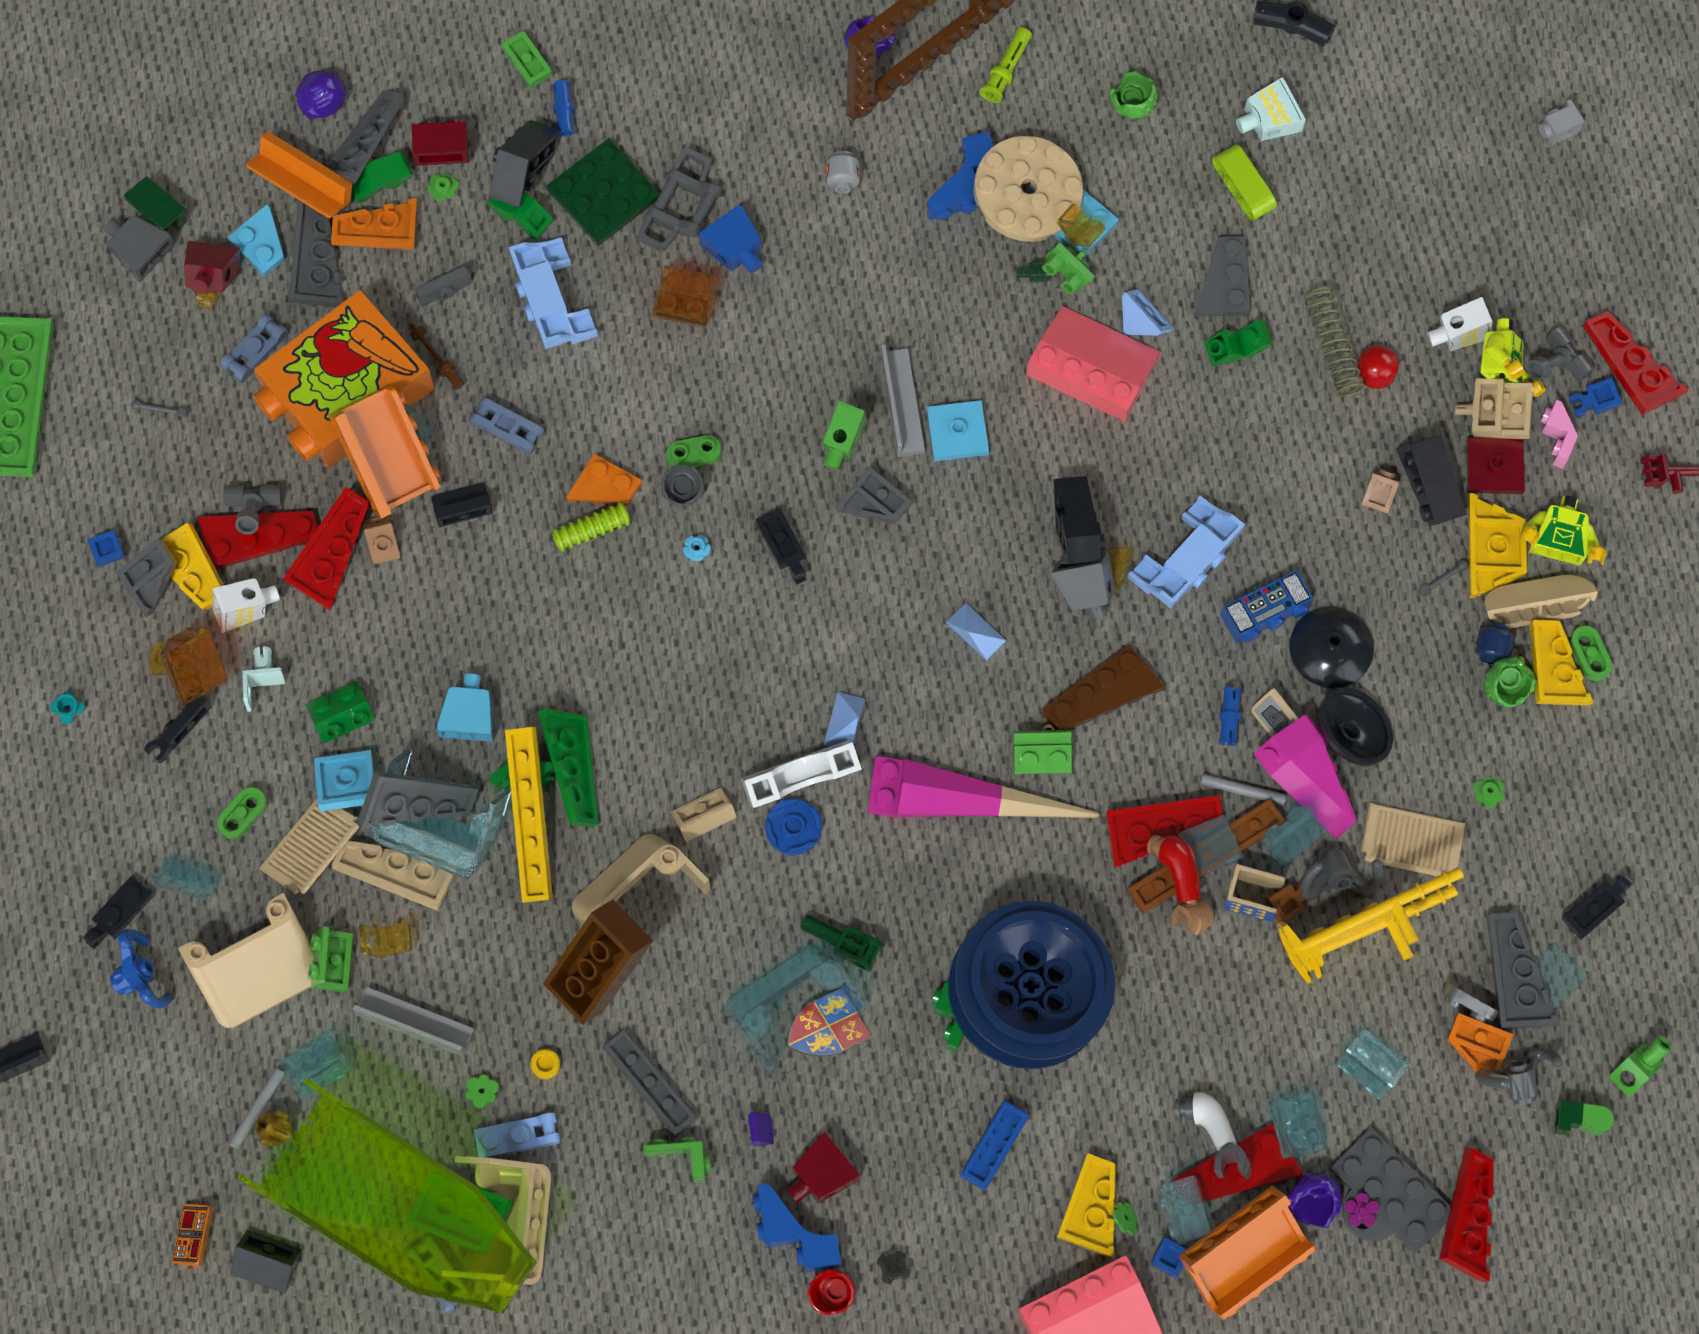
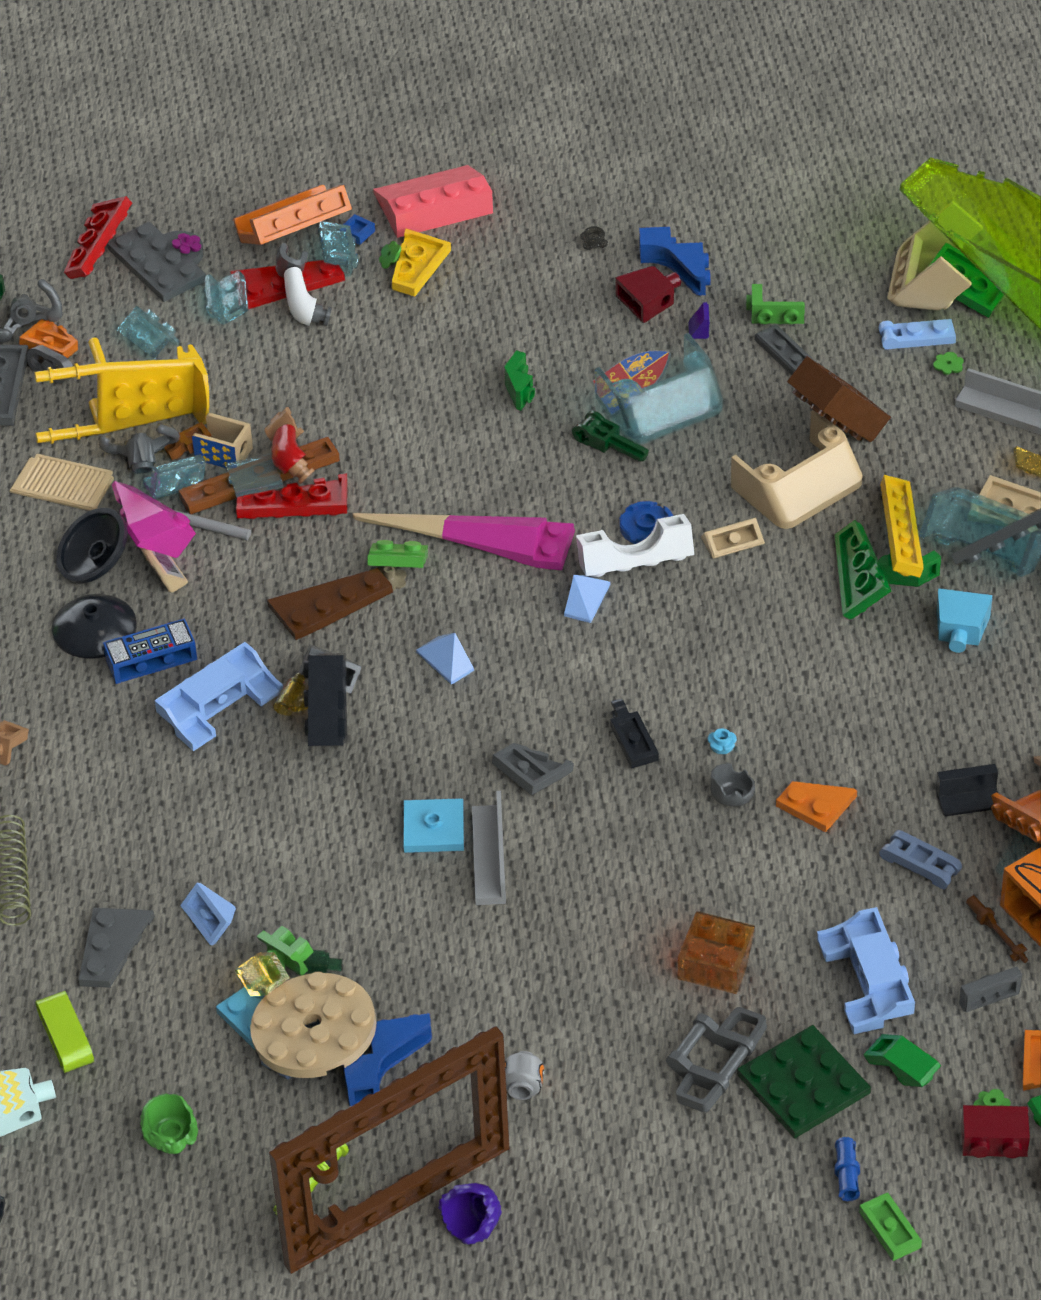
camera: 170 degrees left, 25 degrees down
(520, 159) = (894, 1093): black wedge -> none
(545, 1064) = (890, 378): yellow tile -> none
(591, 527) = (832, 761): lime piece -> none
(694, 454) = (719, 824): bright green plate -> none
(733, 241) = (657, 1011): blue torso -> none
(831, 1292) = (644, 219): red hair -> none
(846, 423) = (554, 816): bright green torso -> none
(994, 1145) = (493, 302): blue plate -> none
(1057, 943) = (443, 375): dark blue wheel -> none
(1092, 363) = (276, 870): coral slope -> none
(1230, 716) = (209, 574): blue pin -> none
(1233, 345) = (122, 880): green slope -> none
(1318, 1210) = (224, 254): dark purple hair -> none

